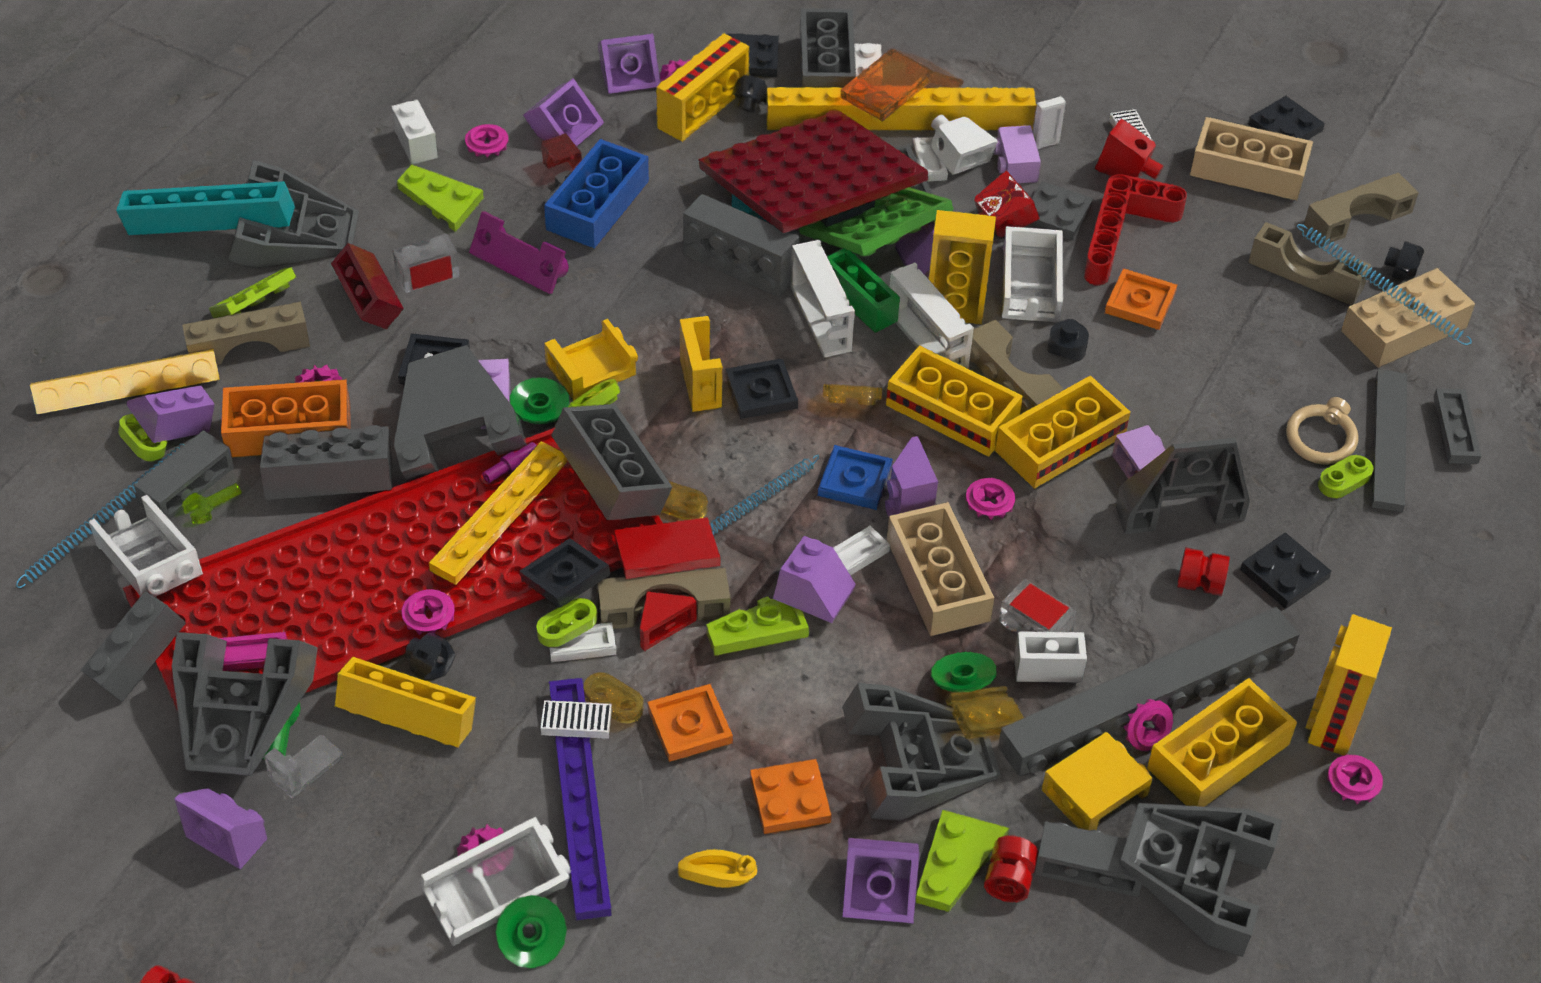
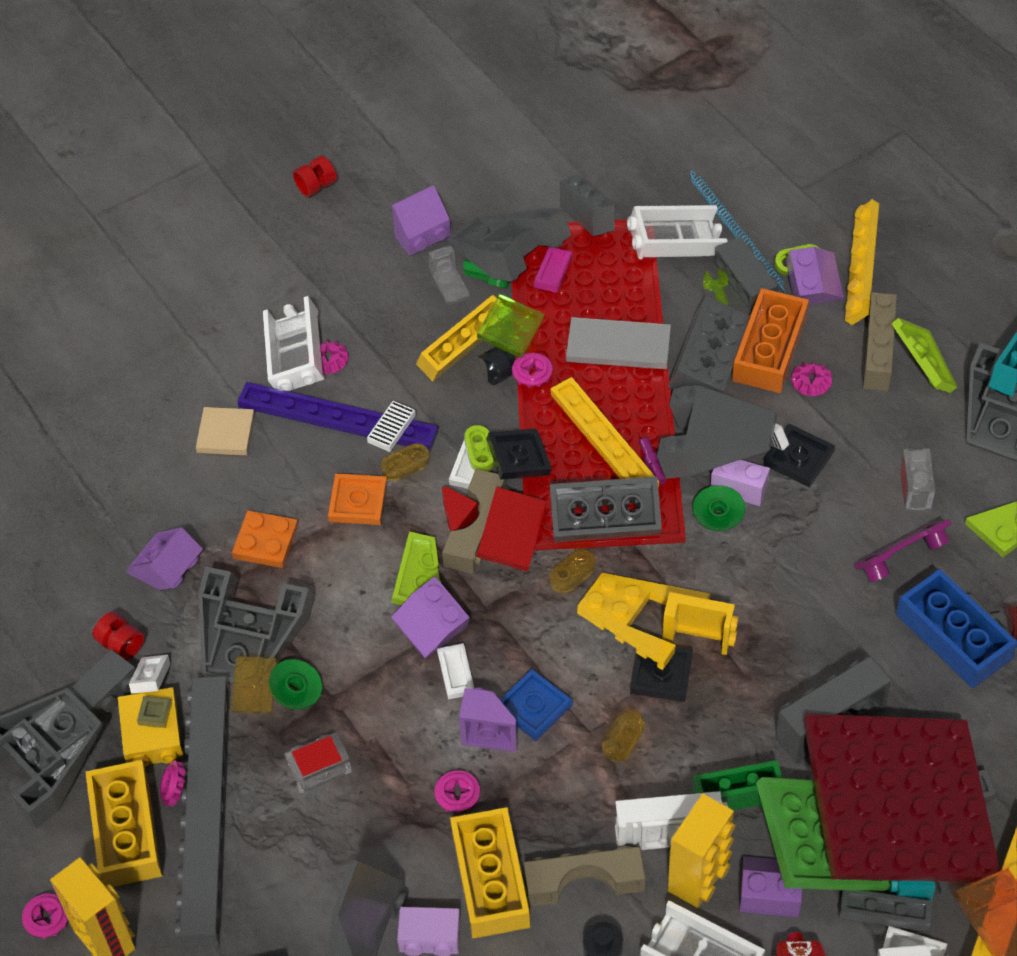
camera: 120 degrees right, 5 degrees up
(349, 548) = (618, 343): none -> light grey tile
(367, 286) = (901, 429): dark red brick -> none
(380, 639) = (510, 326): none -> clear neon green plate
(548, 931) = (248, 355): green dish -> none
(591, 360) = (751, 559): yellow panel -> none
(601, 394) = (704, 546): lime plate -> none
(656, 912) = (225, 431): none -> tan tile
(708, 445) = (618, 600): none -> yellow wing
(718, 868) = (233, 473): yellow arm -> none
(760, 492) = (547, 620): medium azure piece -> none
(821, 299) = (735, 744): white door -> none
(940, 569) = (396, 708): tan brick -> none
(952, 399) = (567, 802): yellow brick -> none
(955, 857) = (156, 616): lime wing -> none
(1044, 804) = (149, 674): none -> white plate
(1050, 657) = (269, 744): white brick -> none
(1088, 768) = (154, 712): none -> olive tile
(1203, 571) = (284, 911): red wheel -> none

